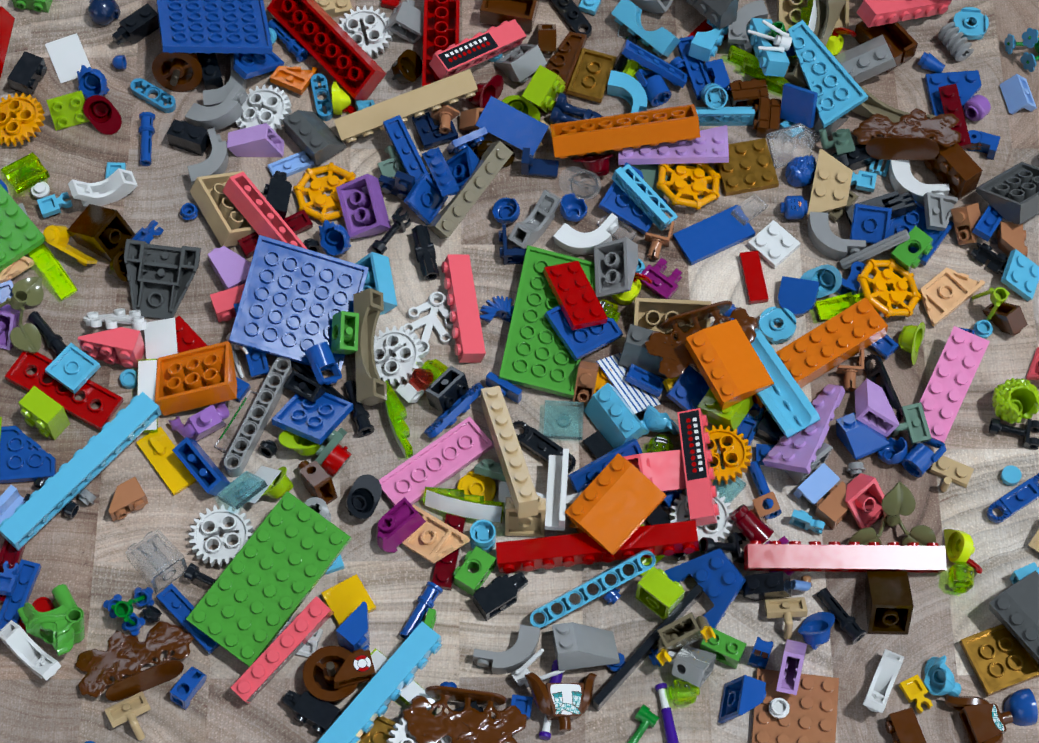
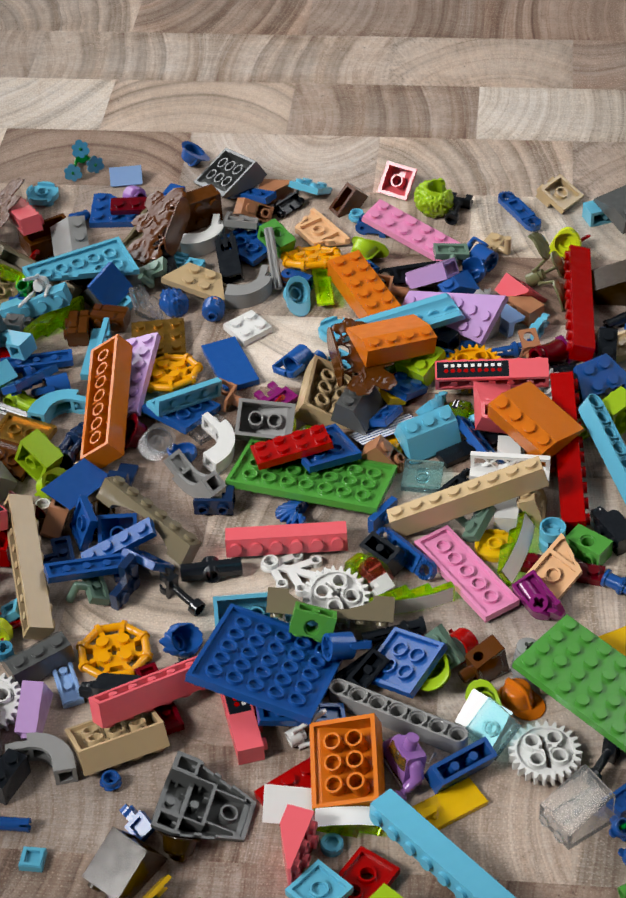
camera: 80 degrees left, 20 degrees down
(106, 191) = (62, 860): white arch -> none
(119, 316) = (258, 846): white plant -> none
(126, 499) = (495, 843): nougat slope -> none
(229, 267) = (203, 735): lavender slope -> none
(268, 448) = (438, 709): black plate -> none
(363, 207) = (146, 610): medium lavender slope -> none
(364, 496) = (506, 629): black piece -> none
(445, 116) = (51, 539): nougat bracket -> none
(506, 210) = (174, 501): blue hair -> none
(714, 96) = (80, 342): medium azure wheel -> none
(717, 291) = (294, 362): none -> blue piece
(718, 73) = (53, 343): blue leg -> none
(749, 209) = (208, 337): clear tile -> none
(753, 277) = (285, 342): red tile -> none
(798, 295) = (307, 314): blue tile -> none
(870, 223) = (246, 259): blue tile -> none
(954, 42) = (60, 200): light grey piece -> none
(961, 577) = (596, 243): clear neon green head -> none
(997, 297) = (336, 192): lime plant -> none
(1011, 475) = (497, 215): medium azure tile -> none

